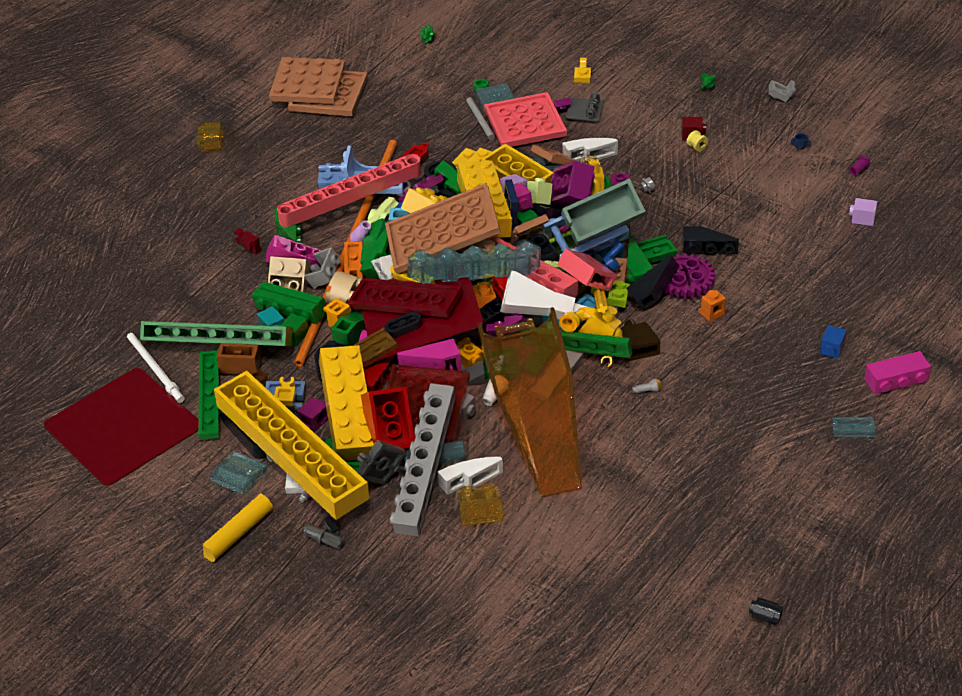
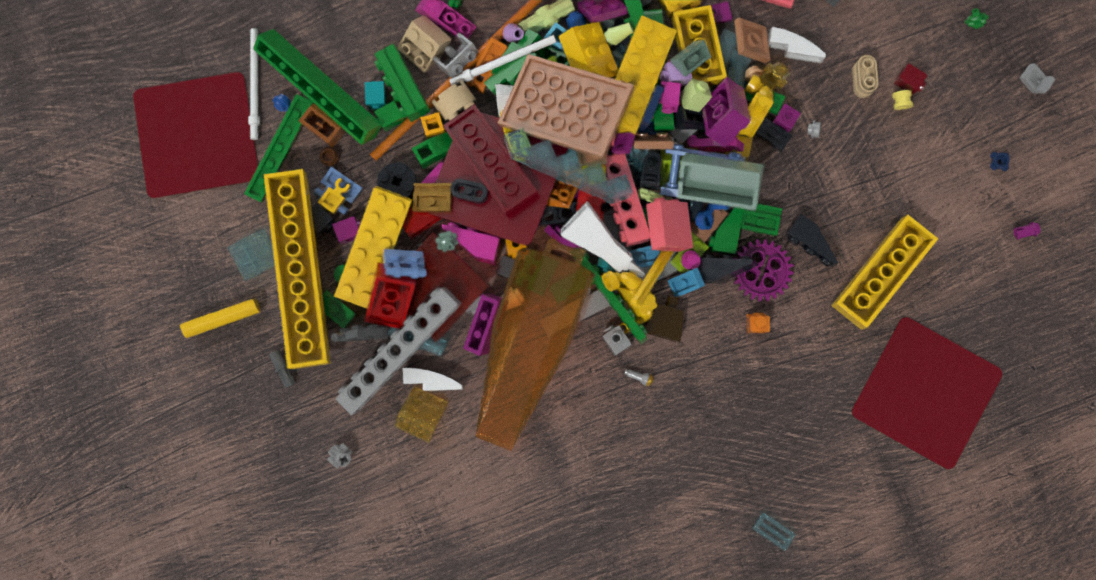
camera: 30 degrees right, 40 degrees up
(189, 365) = (281, 102): none -> blue plate
(368, 243) = (469, 75): none -> white bar
(385, 383) = (404, 263): none -> medium blue plate
(410, 357) = (446, 241): none -> sand green plant
(428, 565) = (339, 455): none -> light grey gear
(448, 188) = (618, 33): none -> yellowish green cone
(486, 407) = (481, 328): none -> magenta brick
(507, 234) = (623, 143): none -> magenta plate
(517, 169) = (691, 57): none -> sand green slope
(607, 371) = (616, 339): none -> light grey brick
(622, 288) = (690, 260): none -> dark pink plate
(631, 304) = (686, 282): none -> dark azure plate
(657, 140) = (865, 76): none -> tan brick
(779, 230) = (884, 272): none -> yellow brick
(833, 341) = (827, 433): blue brick -> none
(863, 211) = (980, 295): lavender brick -> none
(884, 288) = (927, 393): none -> dark red piece
(897, 372) = (853, 504): dark pink brick -> none

